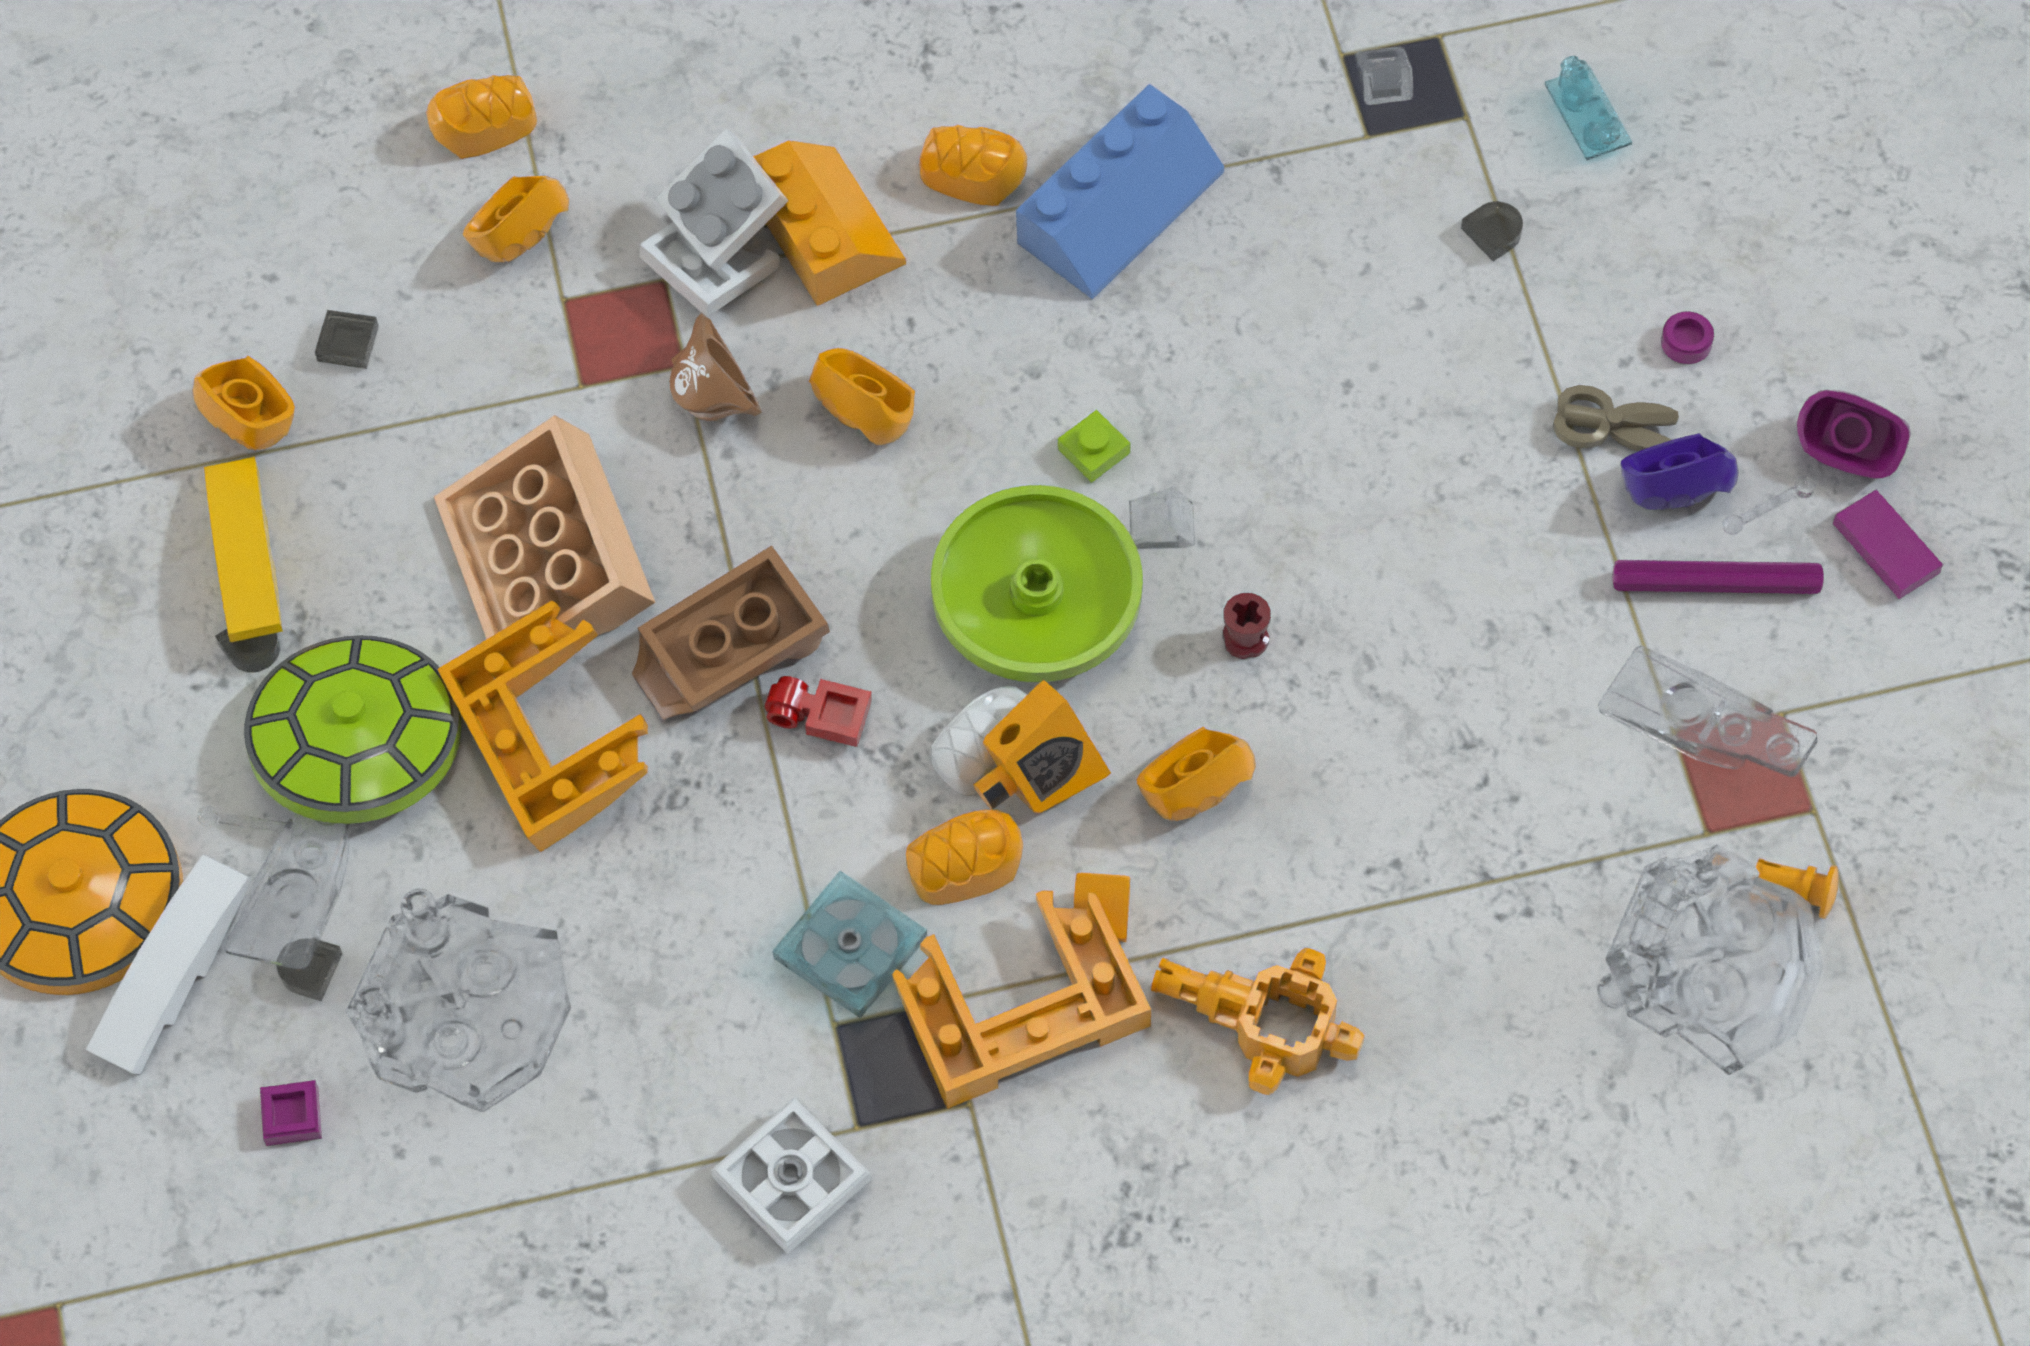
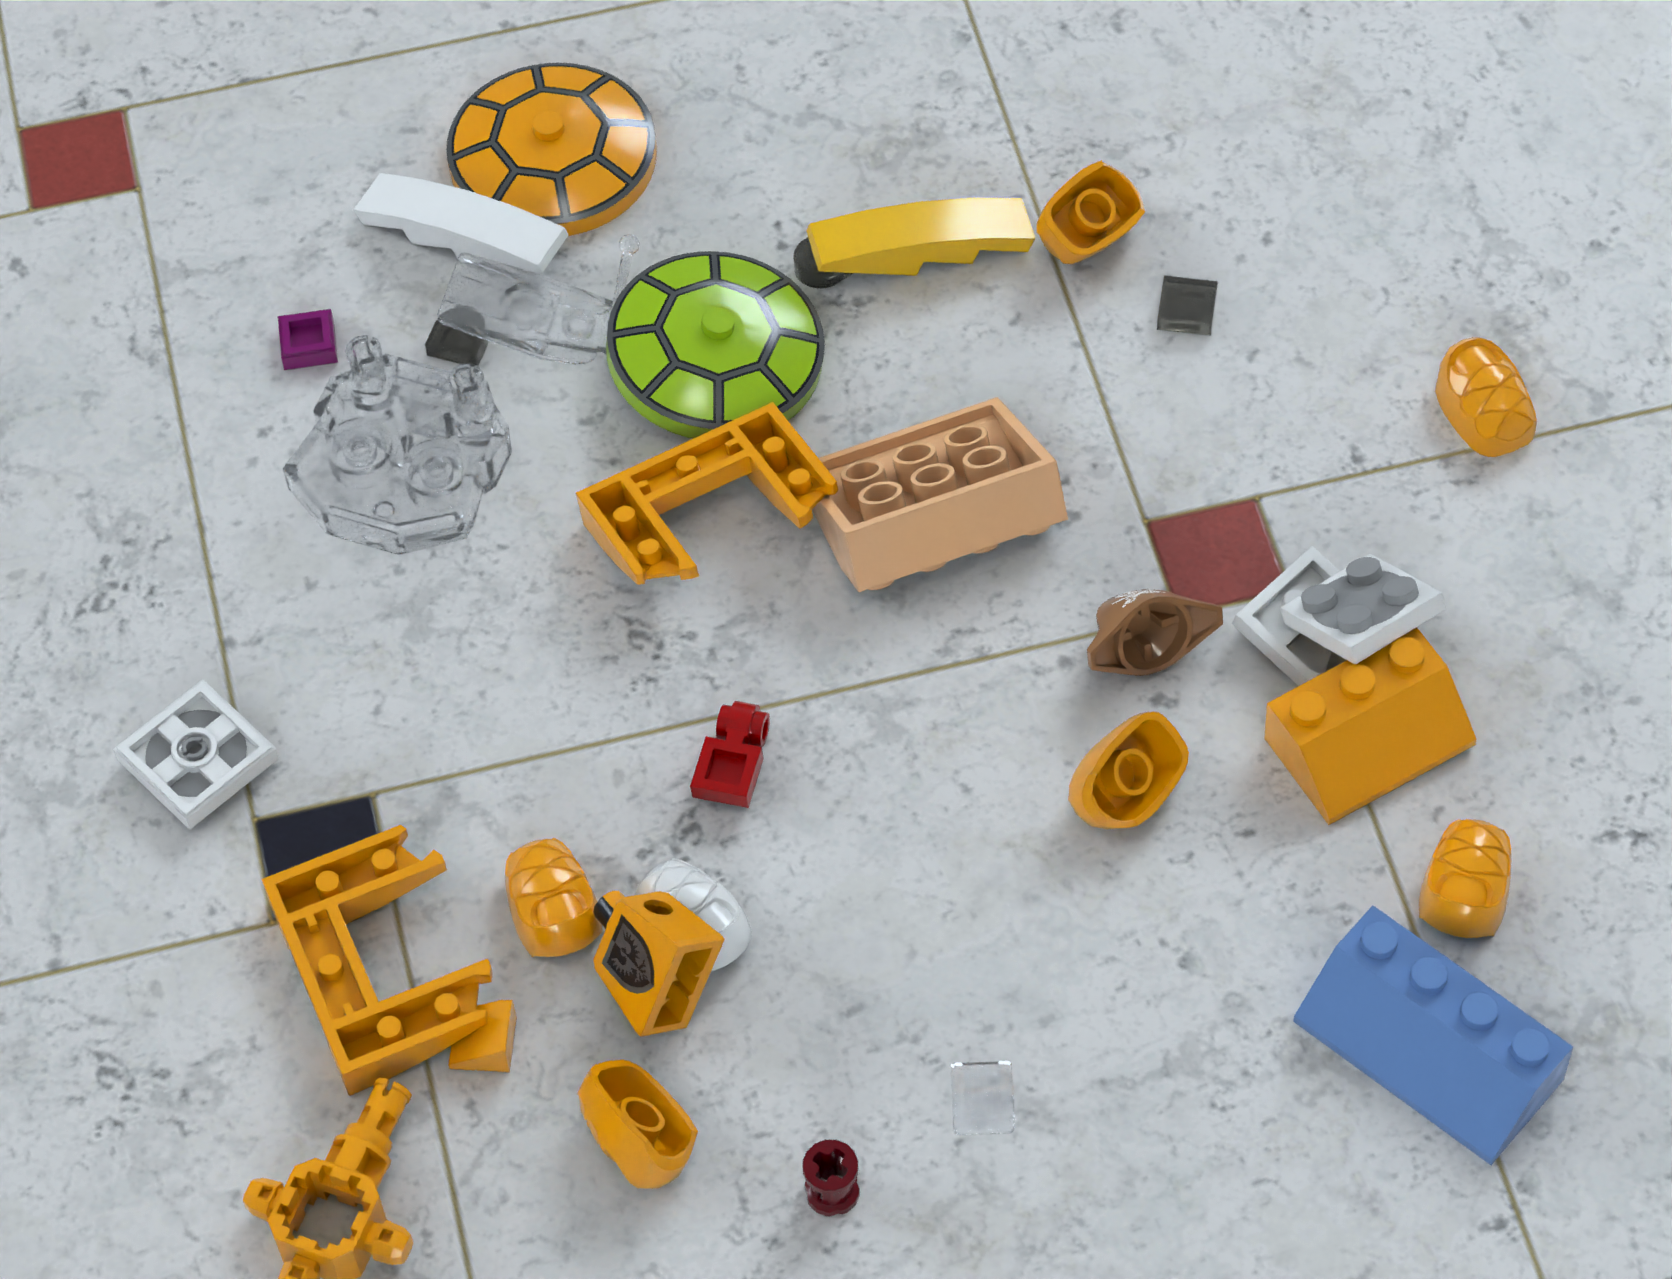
camera: 90 degrees right, 5 degrees down
(516, 217) = (1343, 434): light orange piece -> none
(726, 635) = (822, 666): medium nougat slope -> none
(849, 944) = (452, 795): clear light blue piece -> none
(1036, 583) = (877, 951): lime dish -> none
(1094, 446) = (1082, 1021): lime plate -> none

